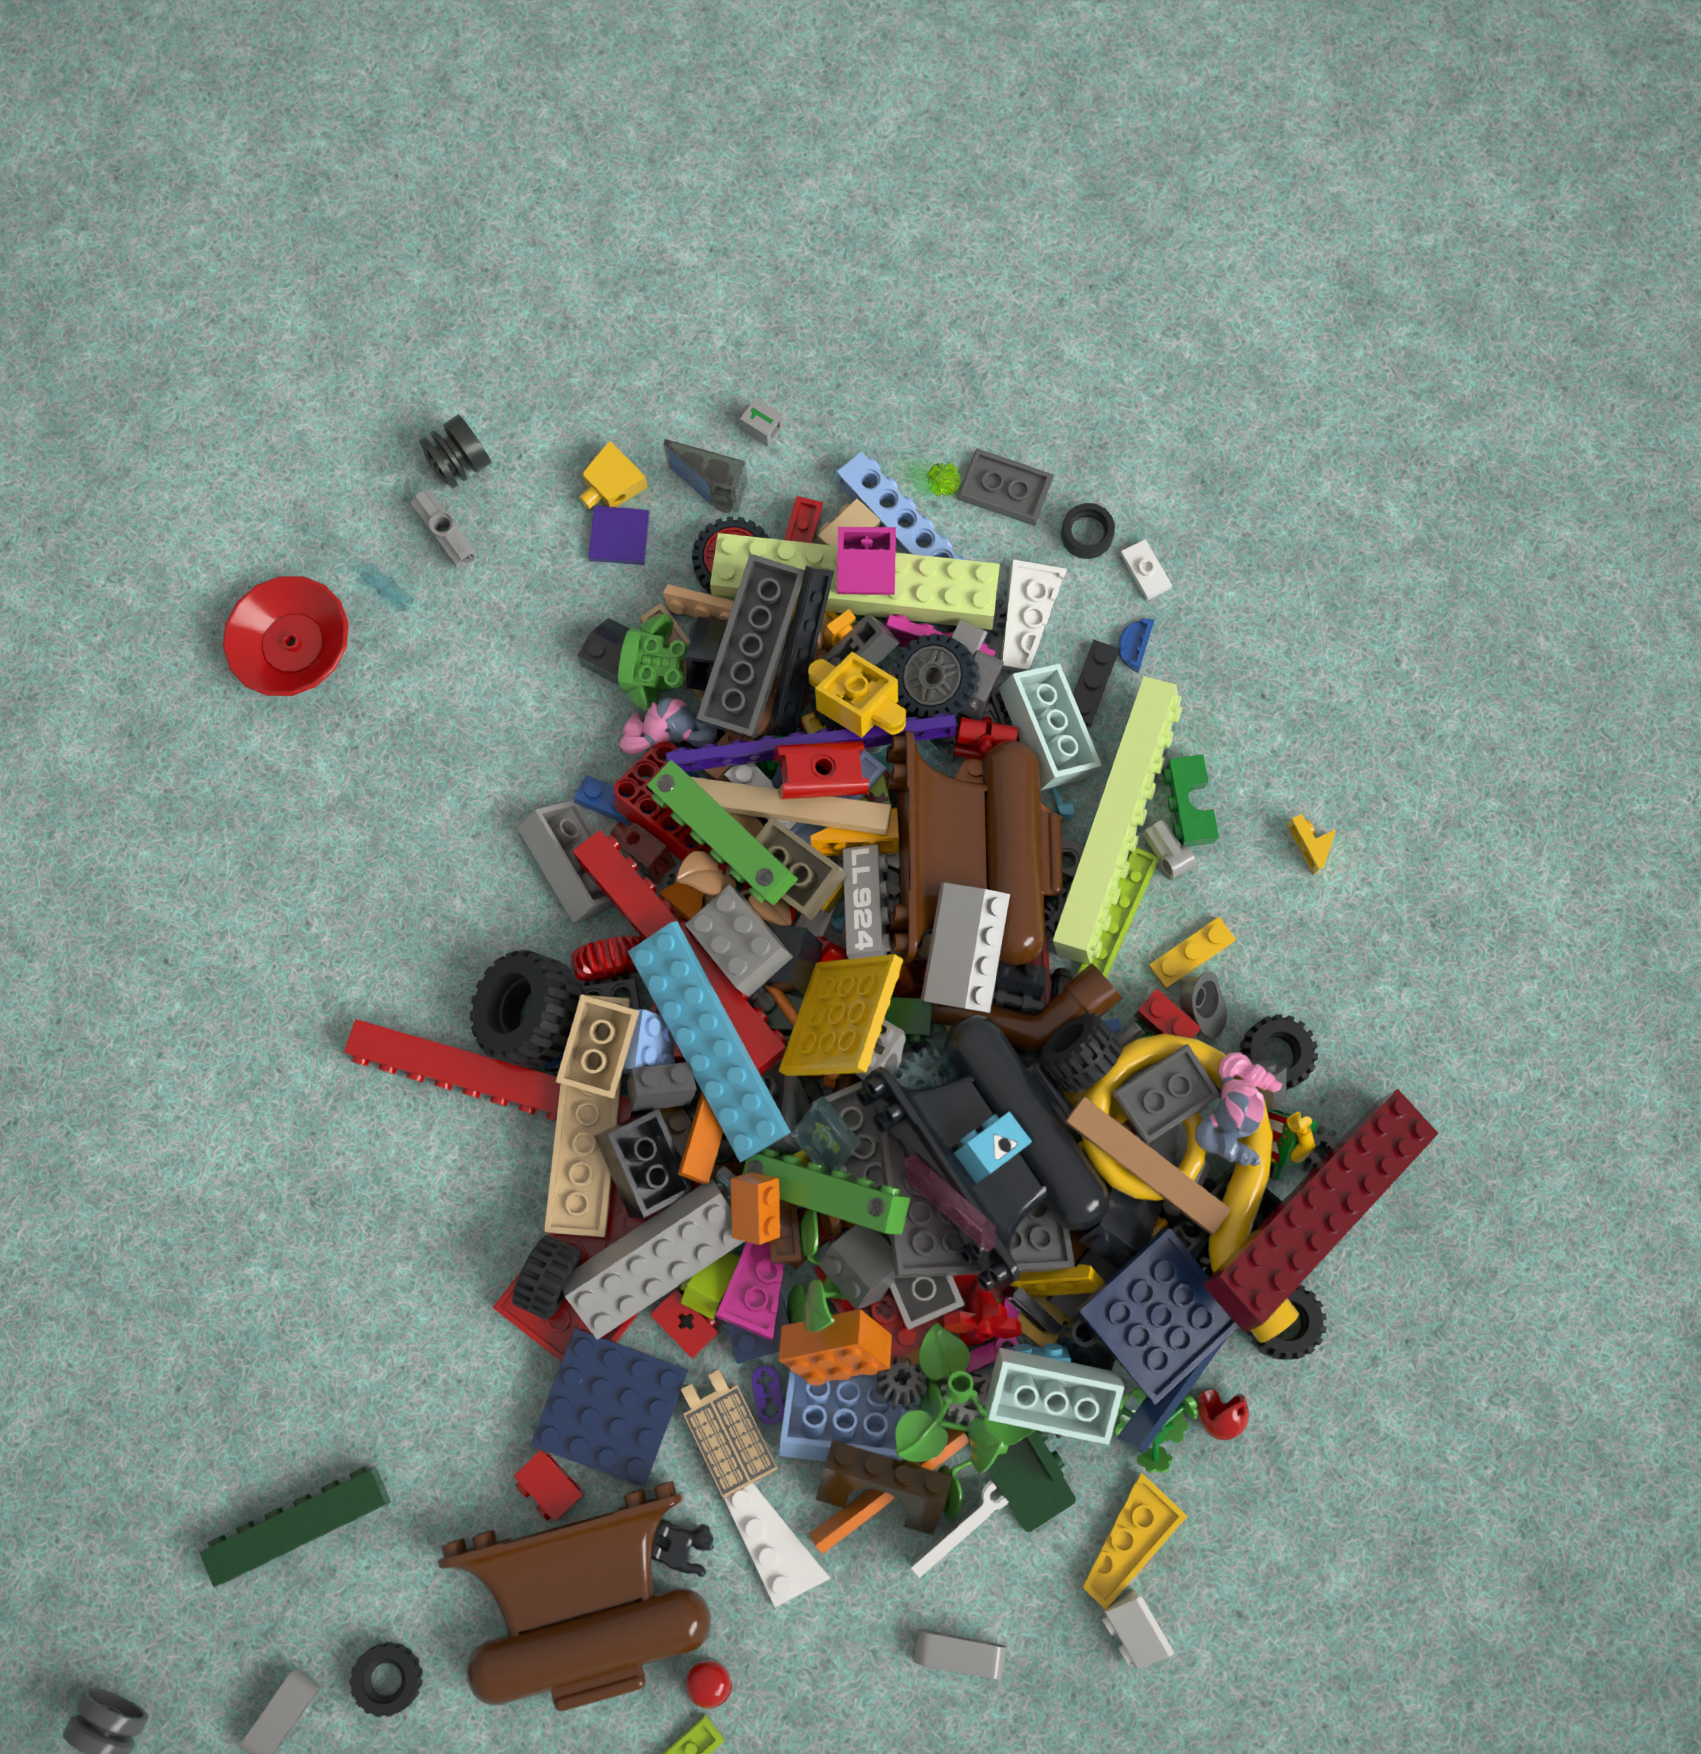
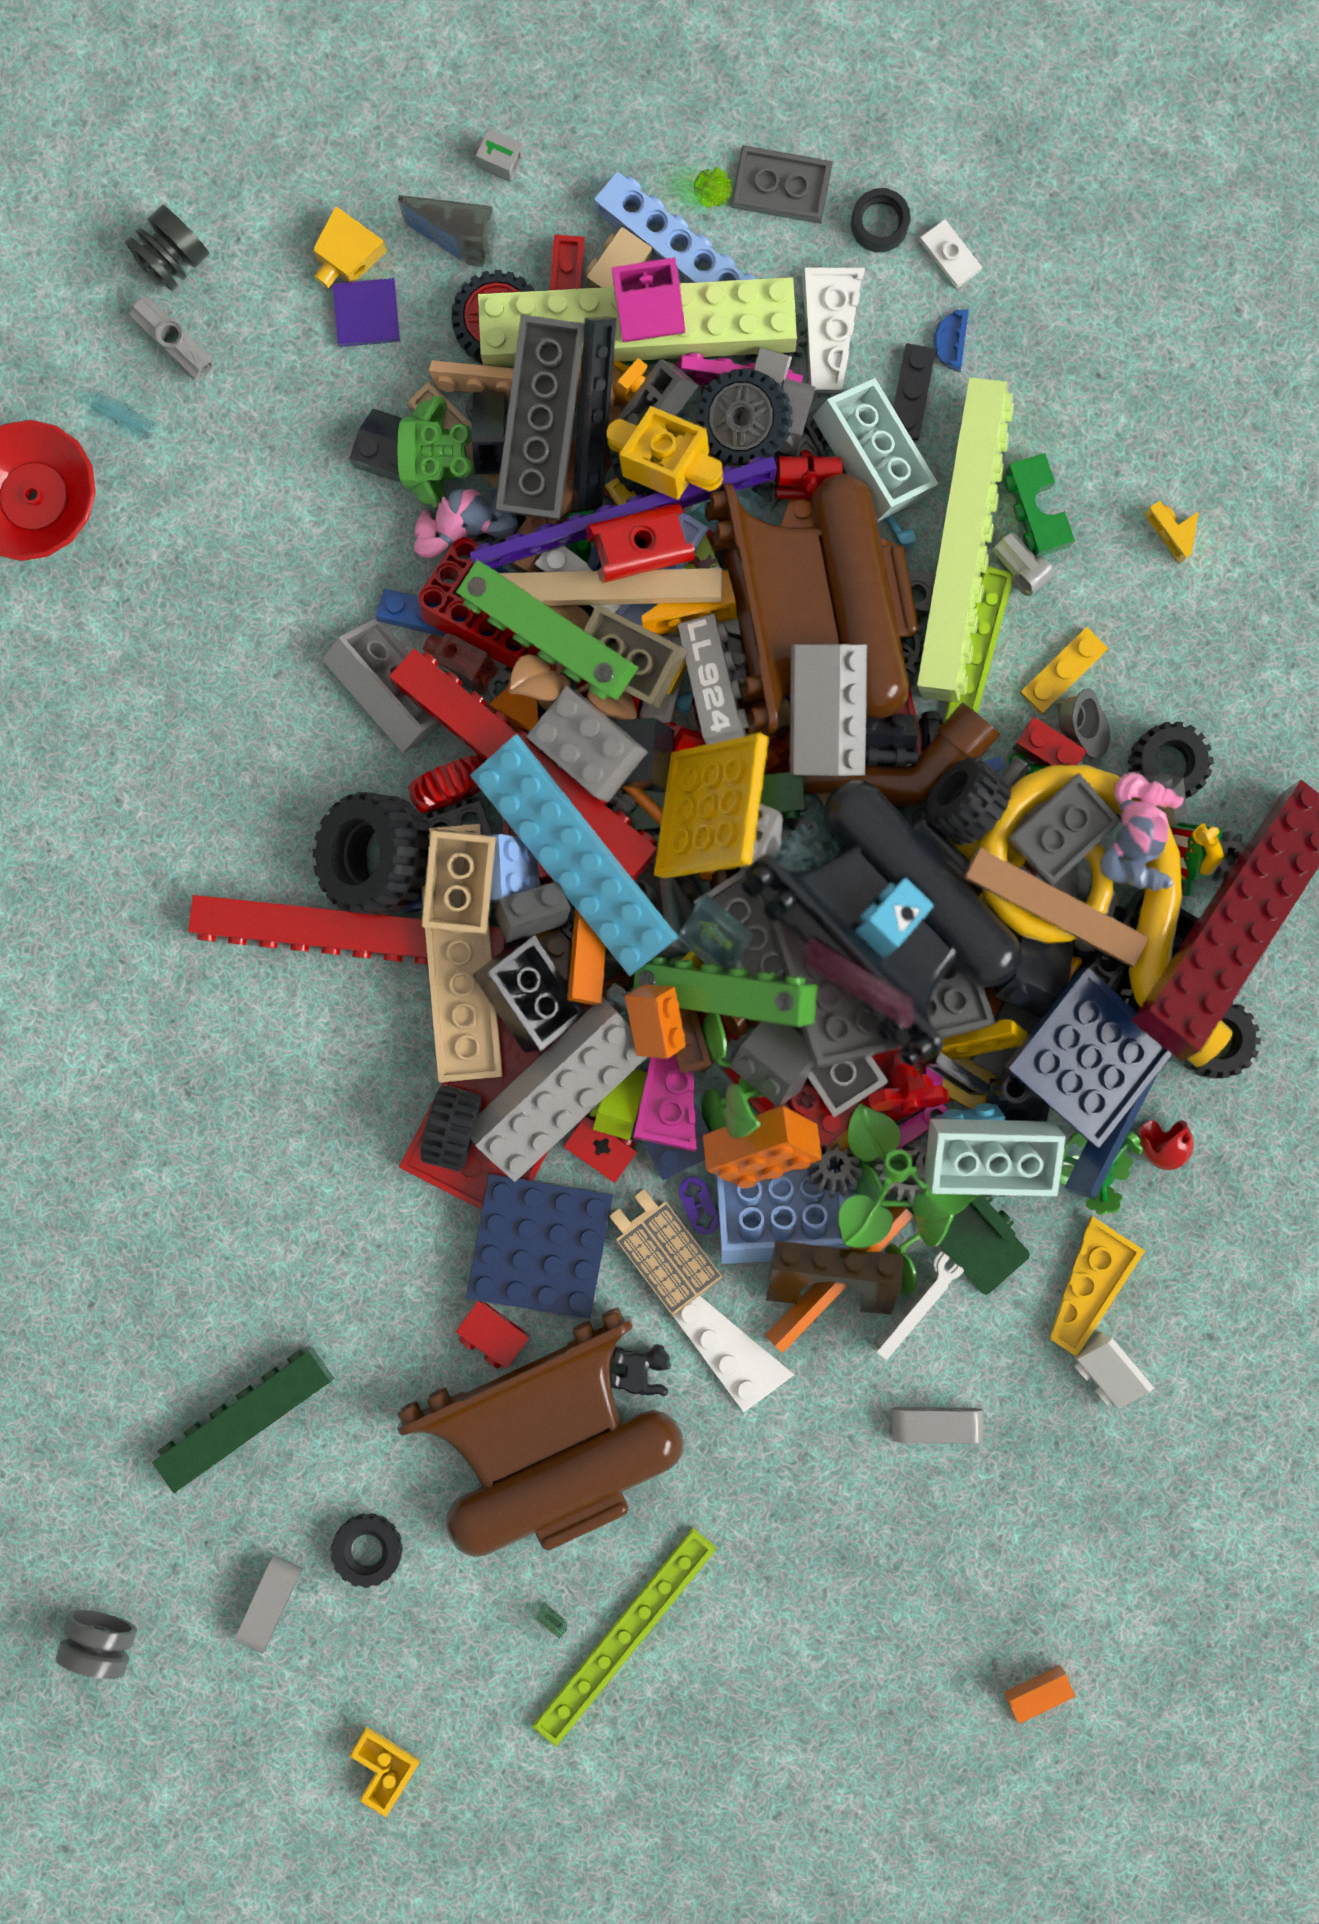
camera: 10 degrees left, 10 degrees up
(708, 1684) = (691, 1497): red helmet -> none

